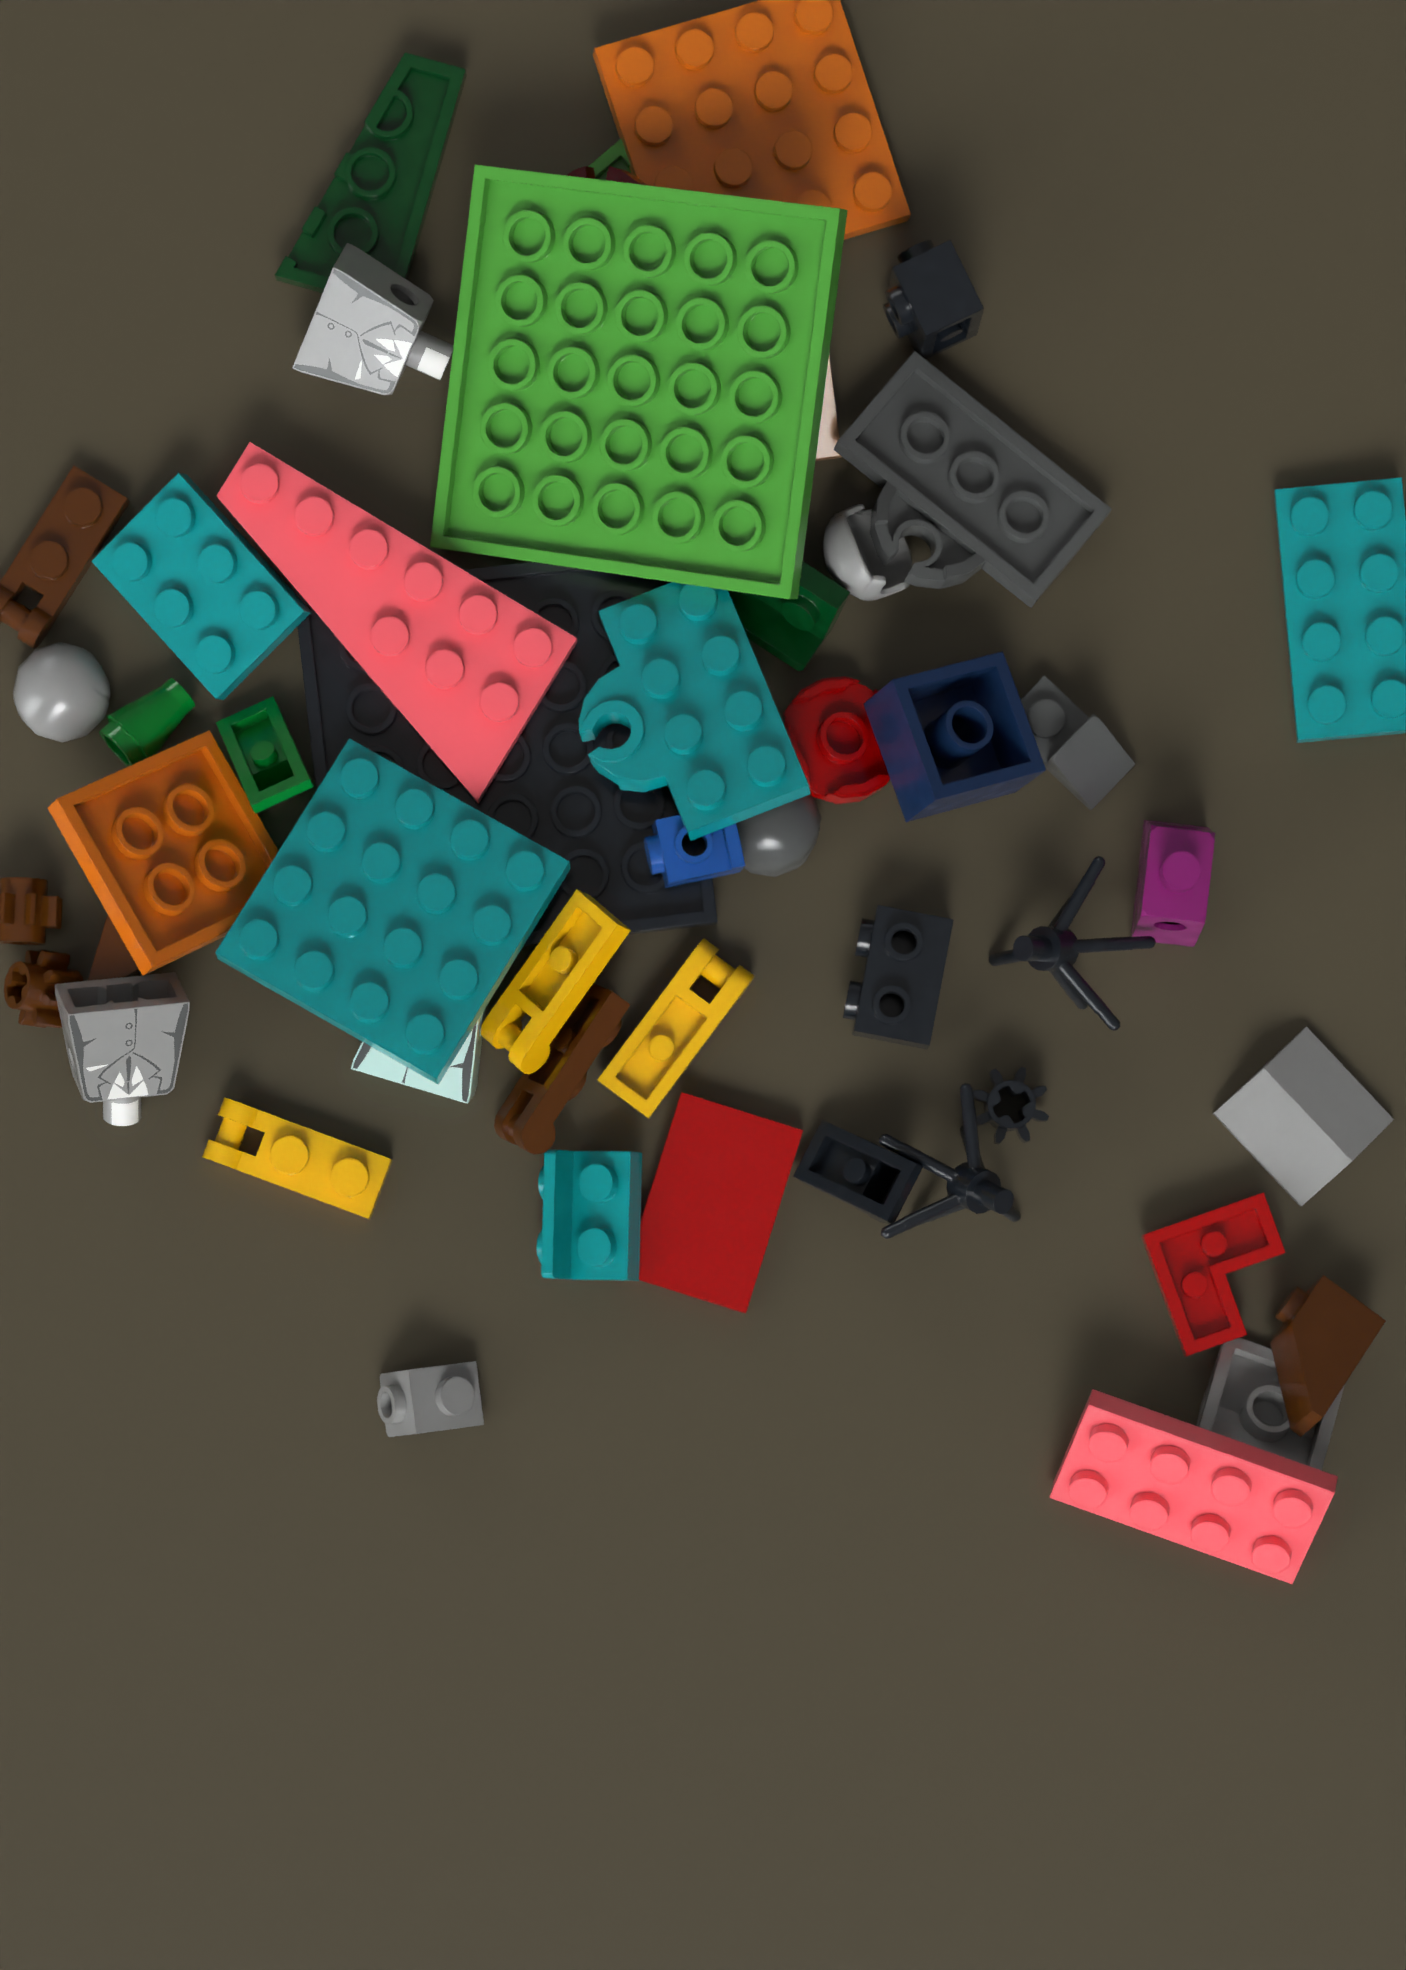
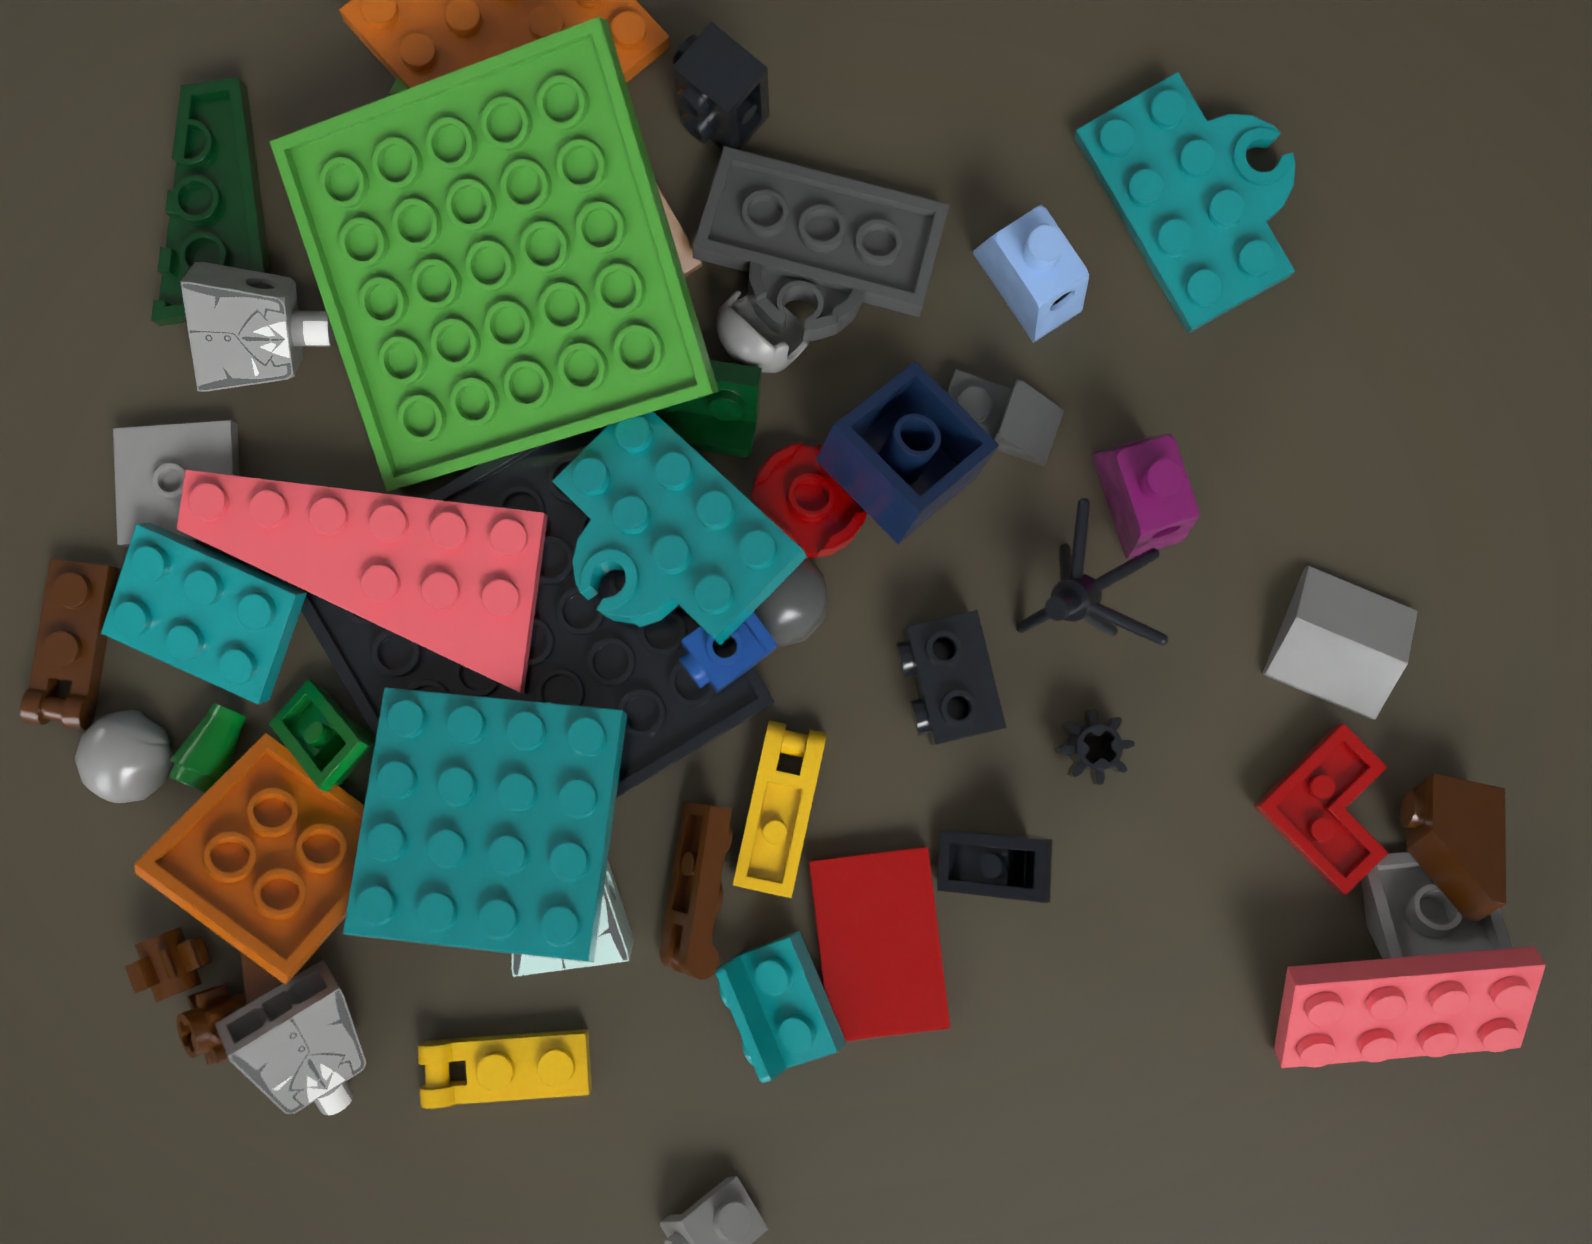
camera: 25 degrees left, 0 degrees up
(214, 425) = (153, 465): none -> light grey plate
(553, 981) = (656, 818): yellow plate -> none
(967, 1184) = (1098, 836): black plant -> none
(1163, 616) = (1032, 269): none -> light blue torso

